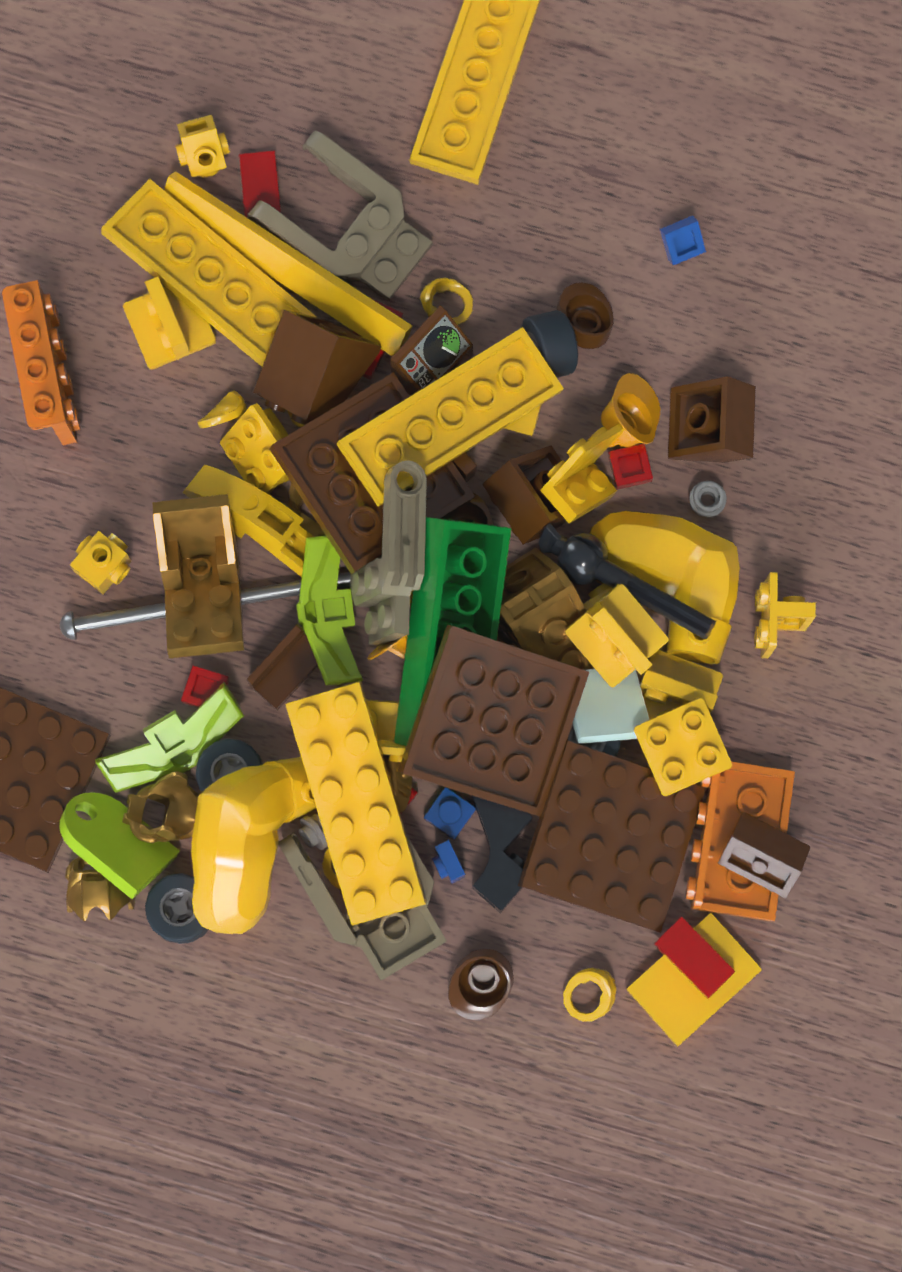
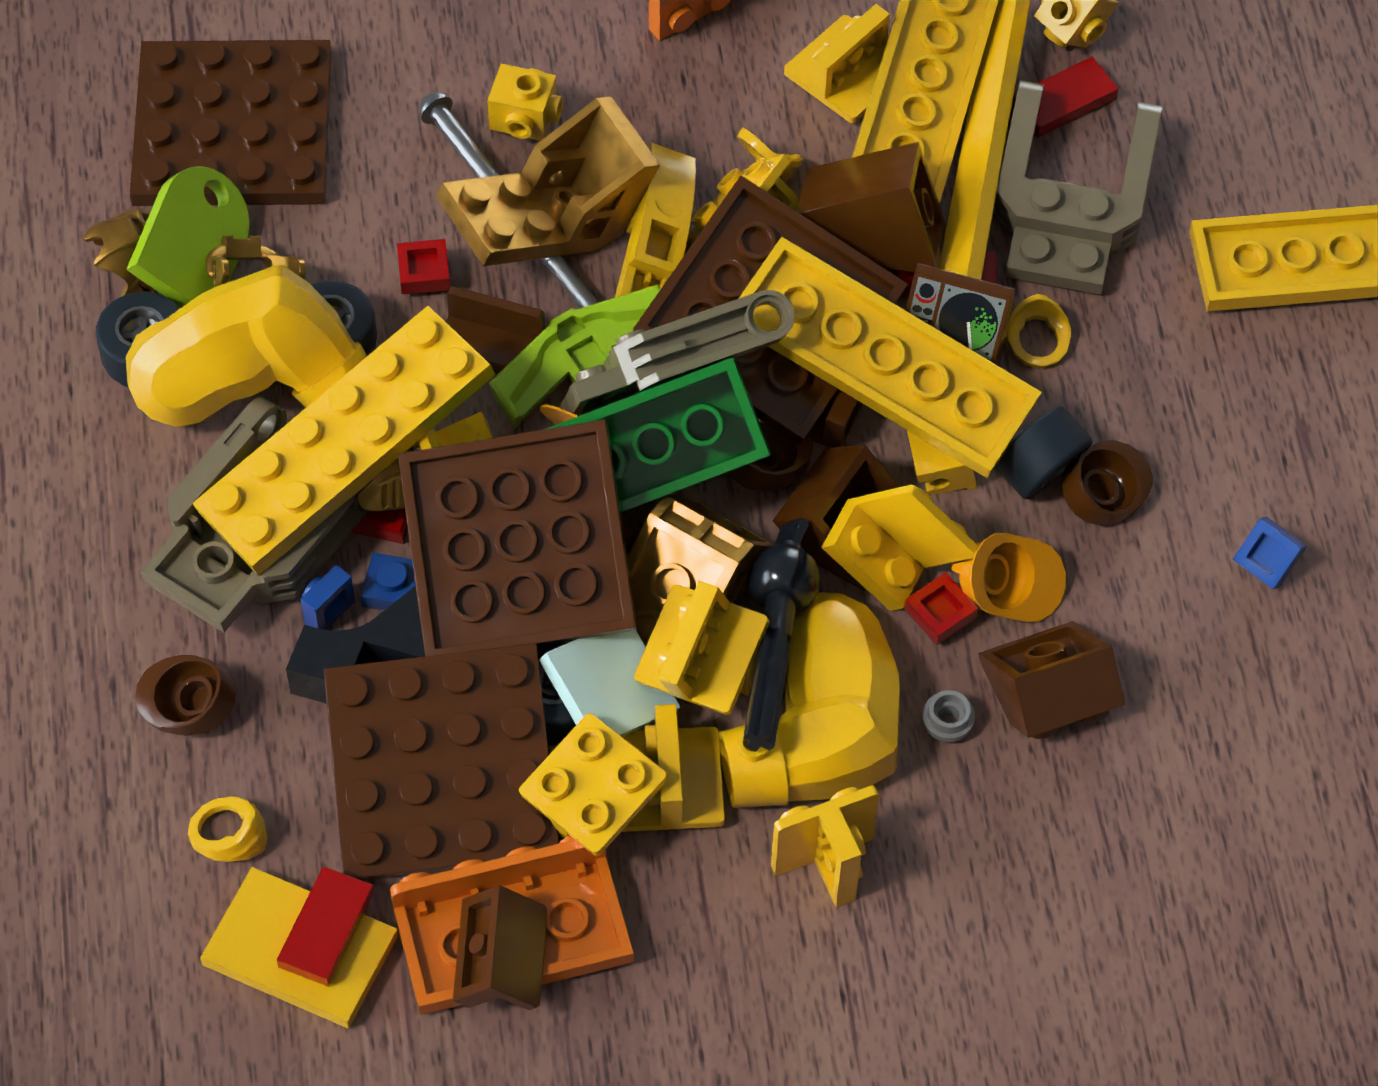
camera: 65 degrees right, 20 degrees down
(173, 743) = (344, 255): lime plate -> none

